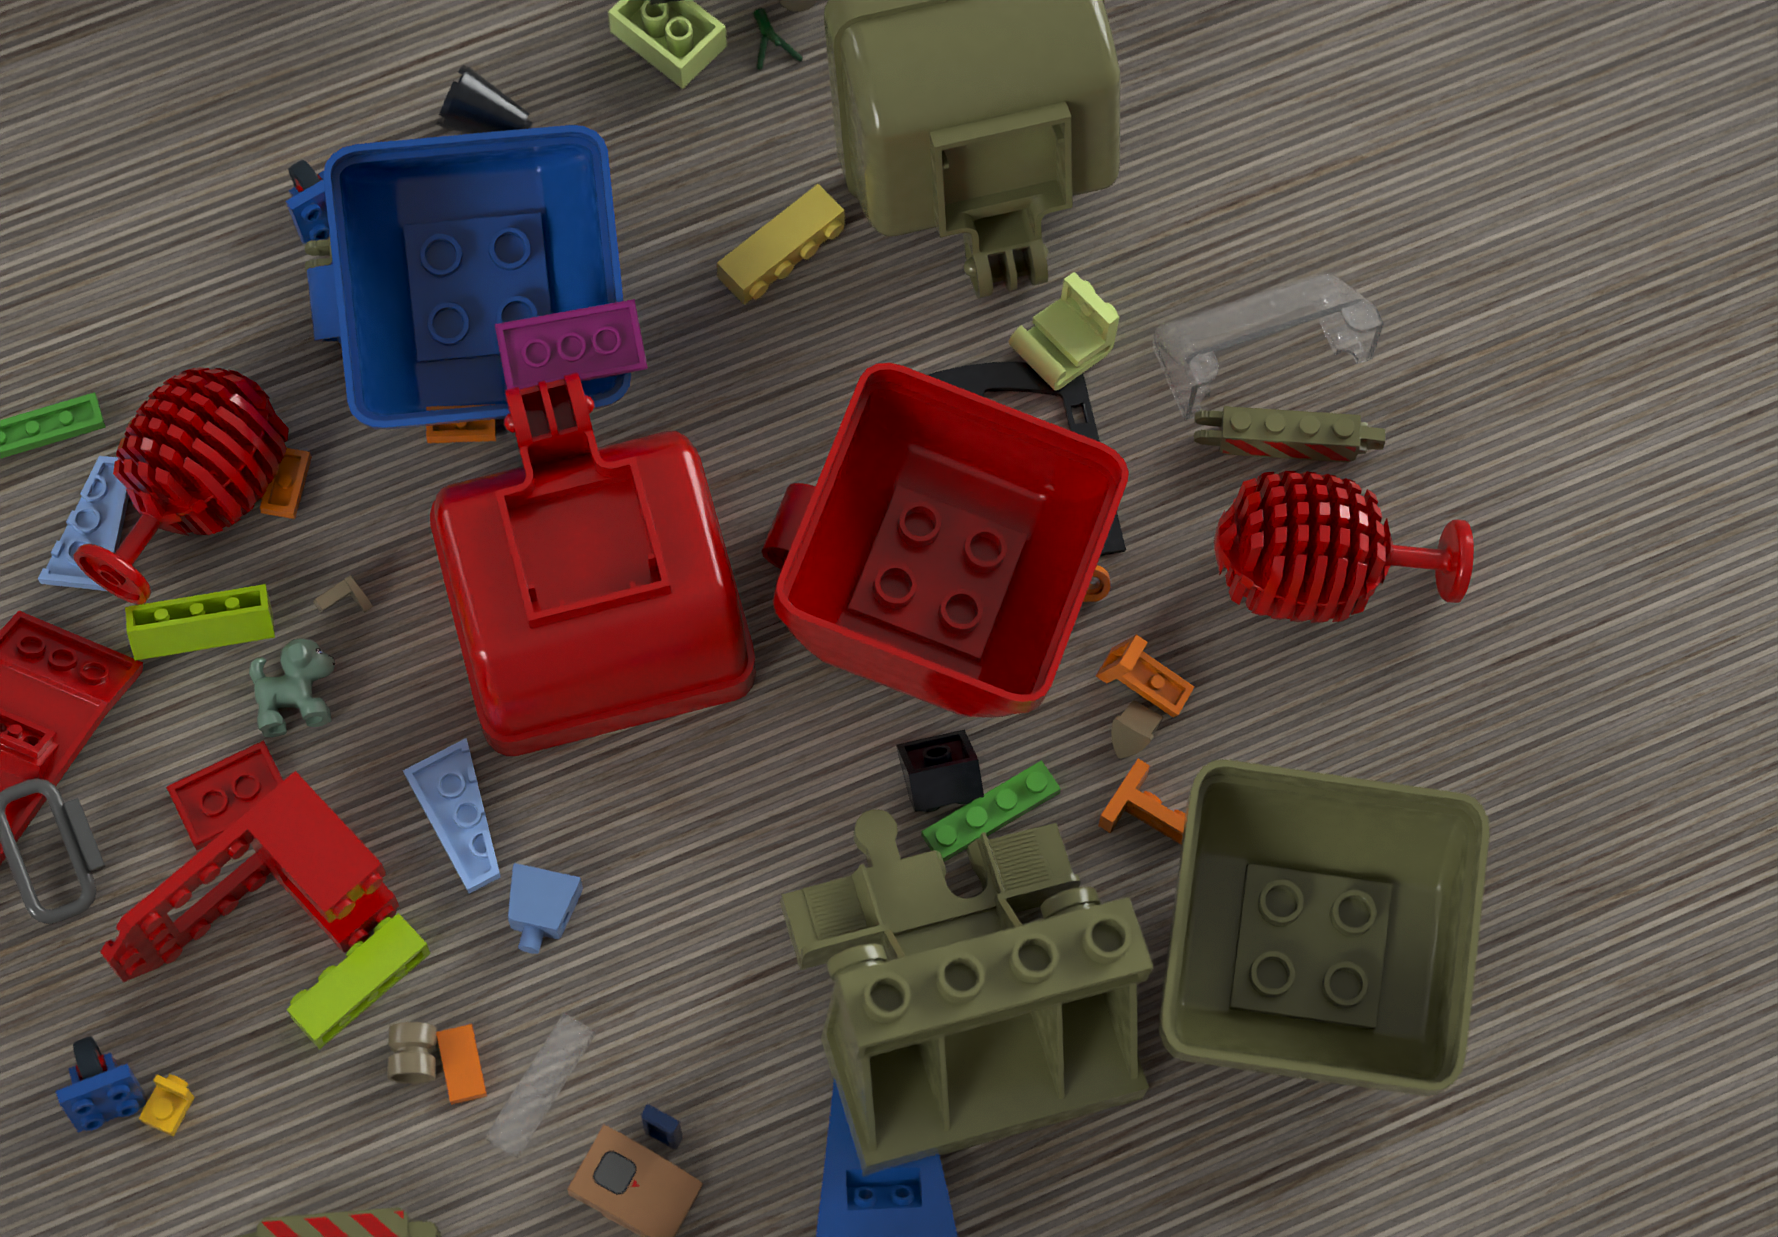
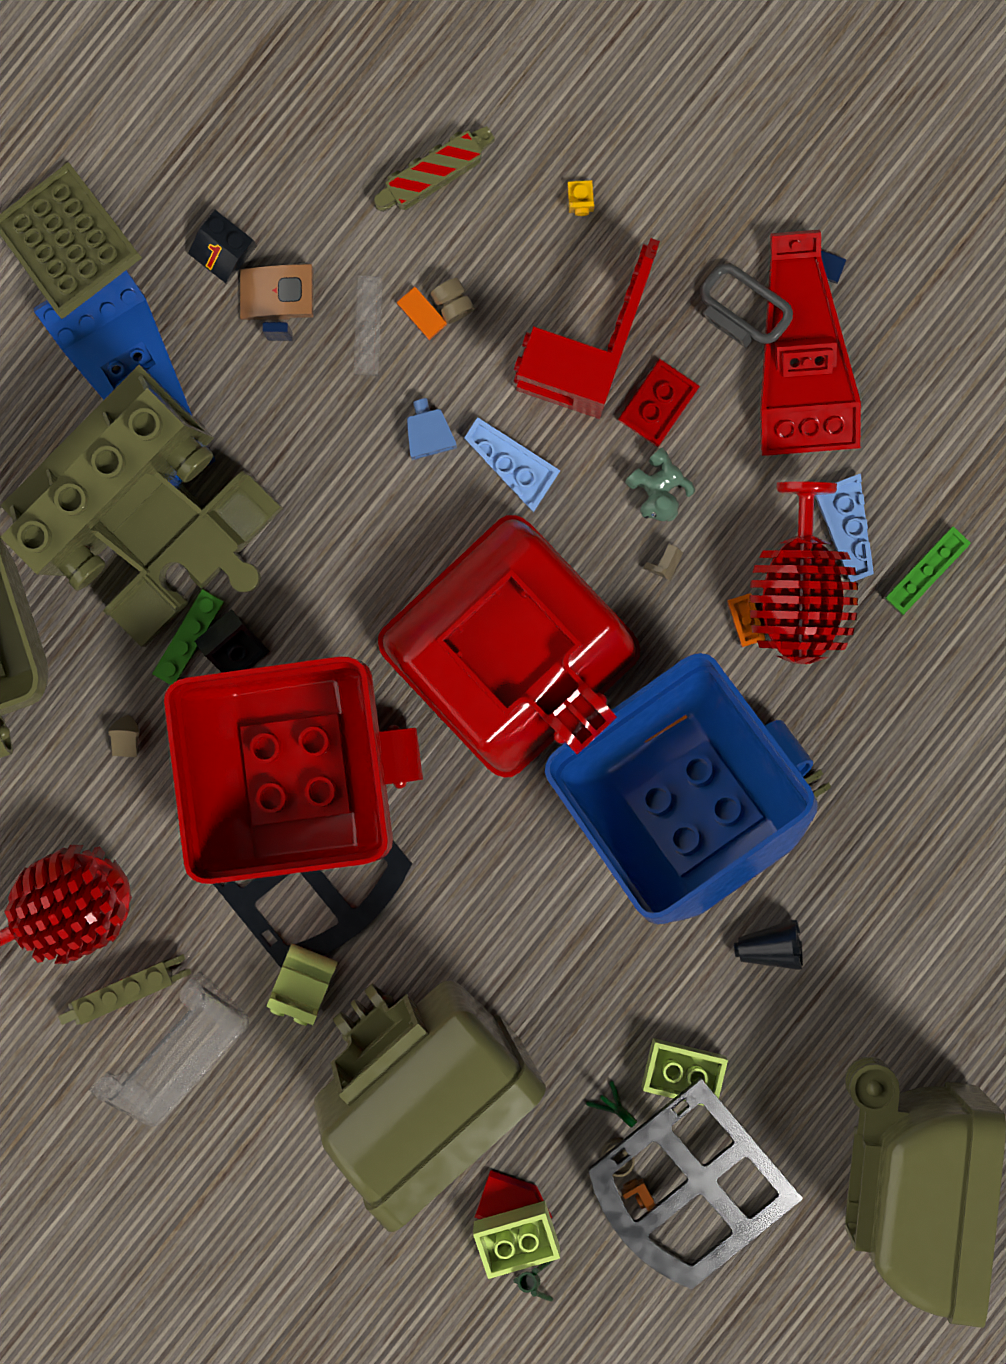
camera: 155 degrees right, 20 degrees up
(99, 1088) = (625, 182): blue plate -> none
(199, 622) = (740, 496): lime brick -> none
(308, 202) = (834, 819): blue plate -> none
(358, 980) = (511, 327): lime brick -> none
(587, 341) = (593, 773): magenta tile -> none
(781, 244) = (523, 954): light yellow brick -> none
(1143, 806) = (107, 688): orange bracket -> none
(1145, 676) = (135, 773): orange bracket -> none

